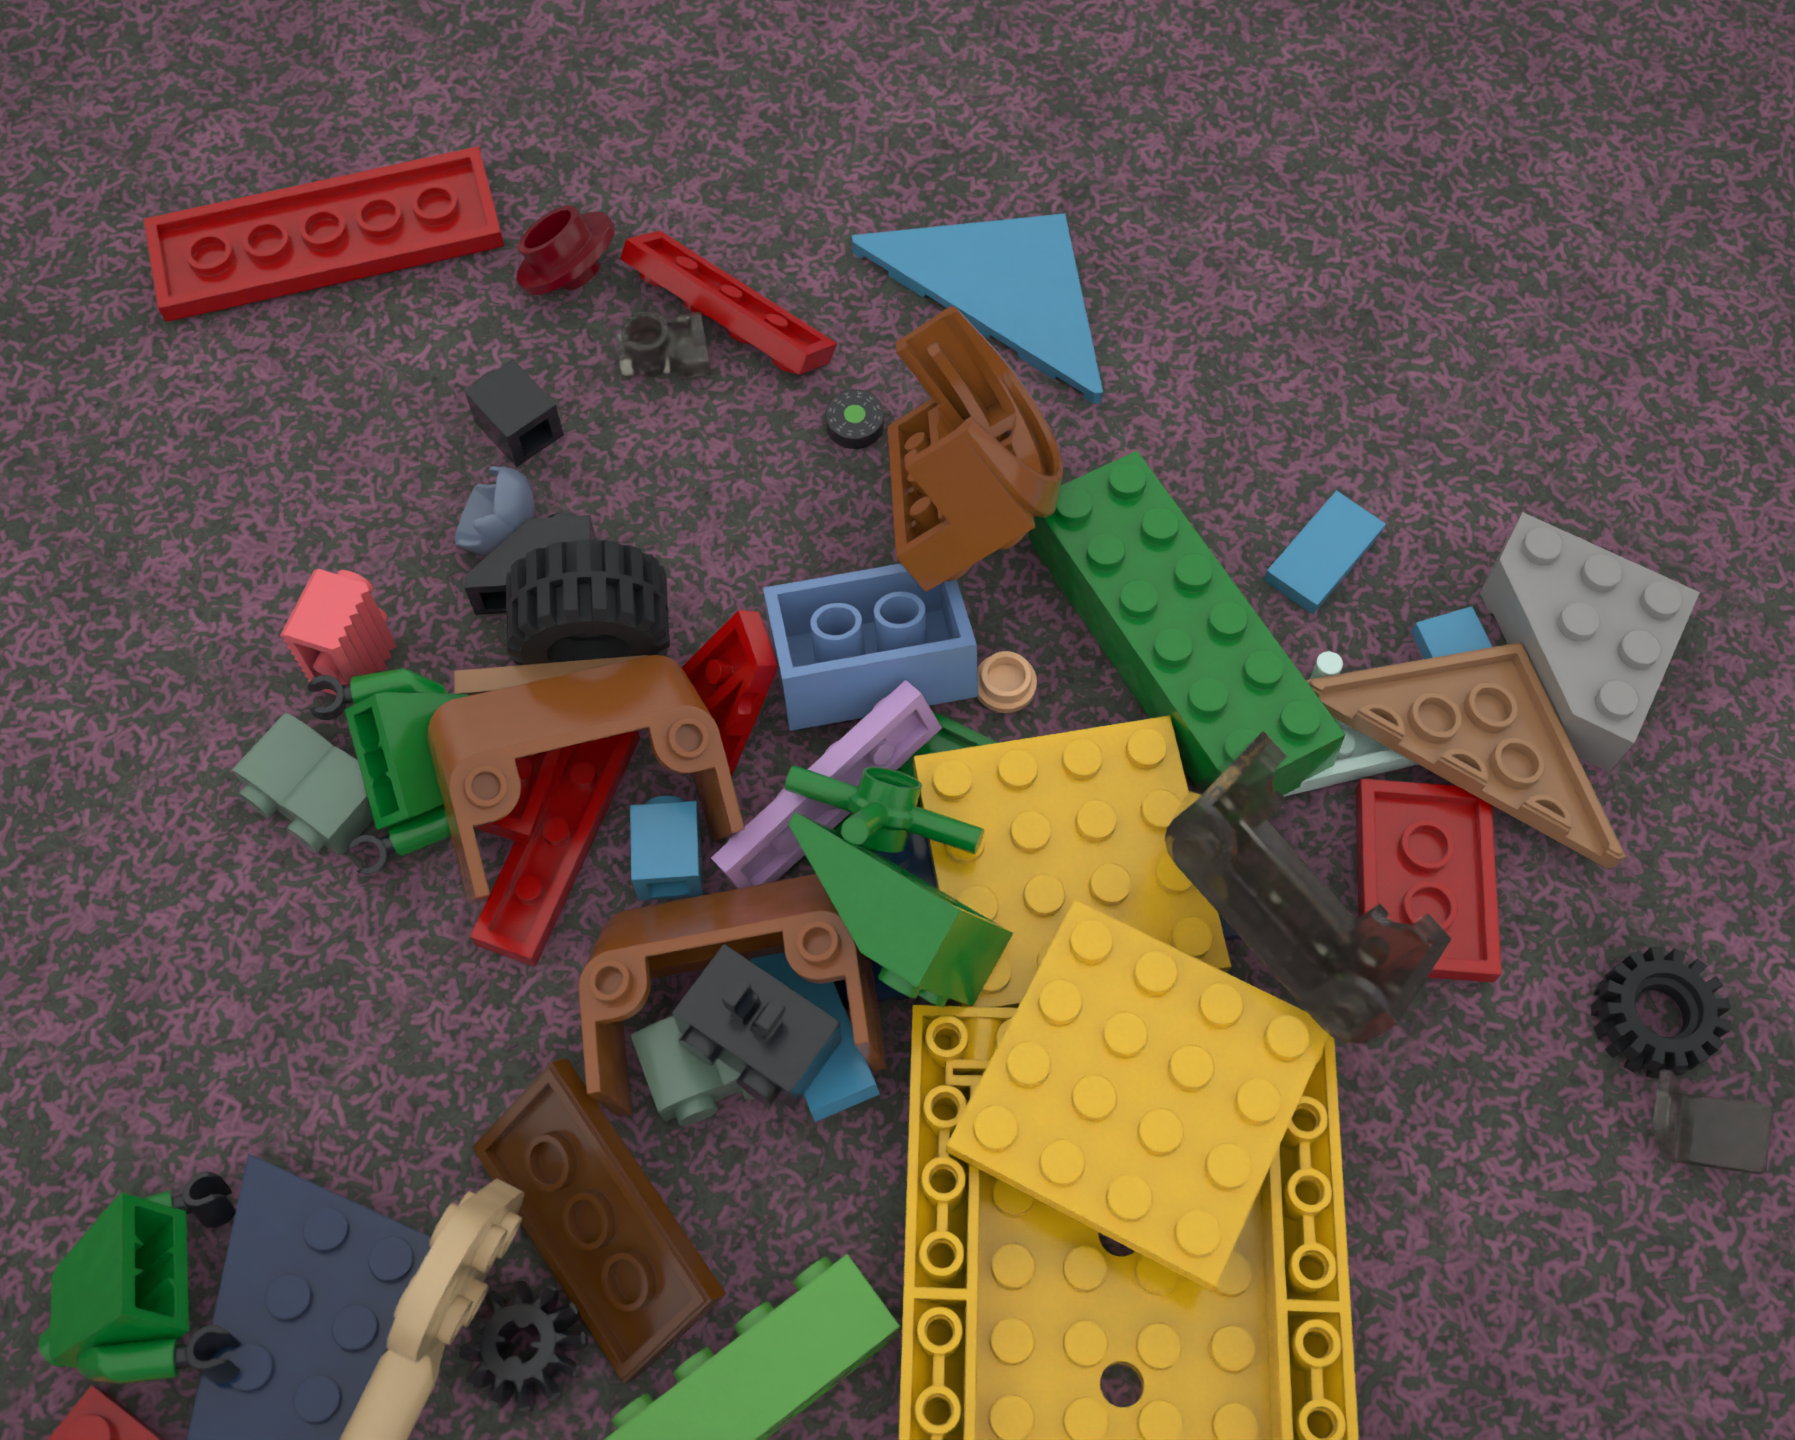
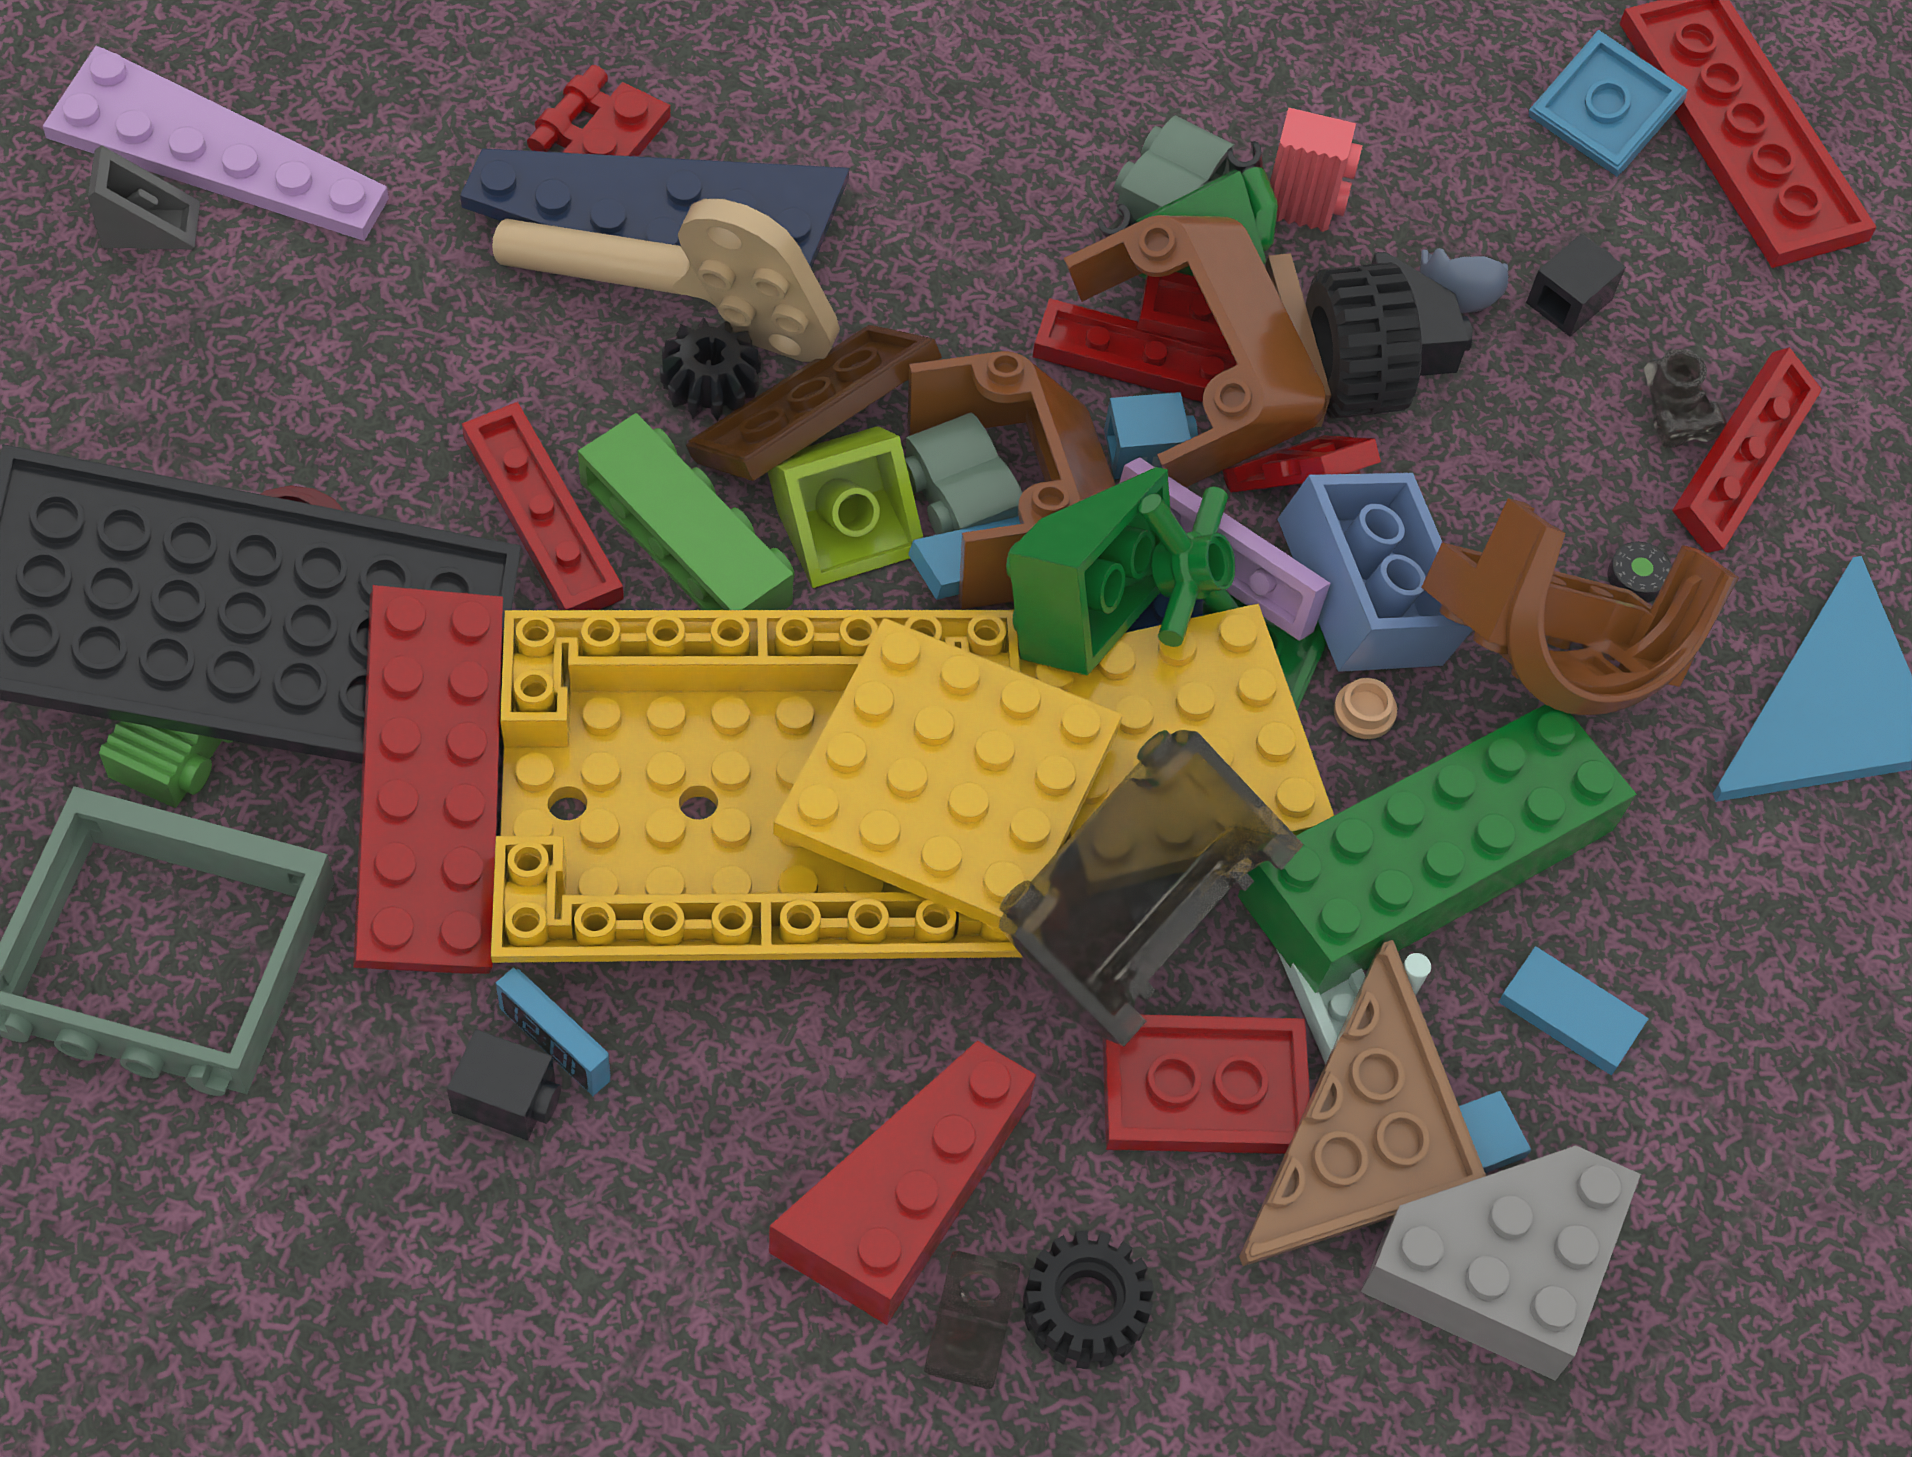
camera: 80 degrees right, 5 degrees down
(125, 1291) = (740, 101): green torso -> none
(279, 346) = (1608, 103): none -> dark azure plate
(563, 250) = (1768, 303): dark red piece -> none
(736, 1185) = (847, 505): none -> lime slope
(756, 1028) = (978, 479): black brick -> none
(1584, 1187) = (898, 1193): none -> red wedge

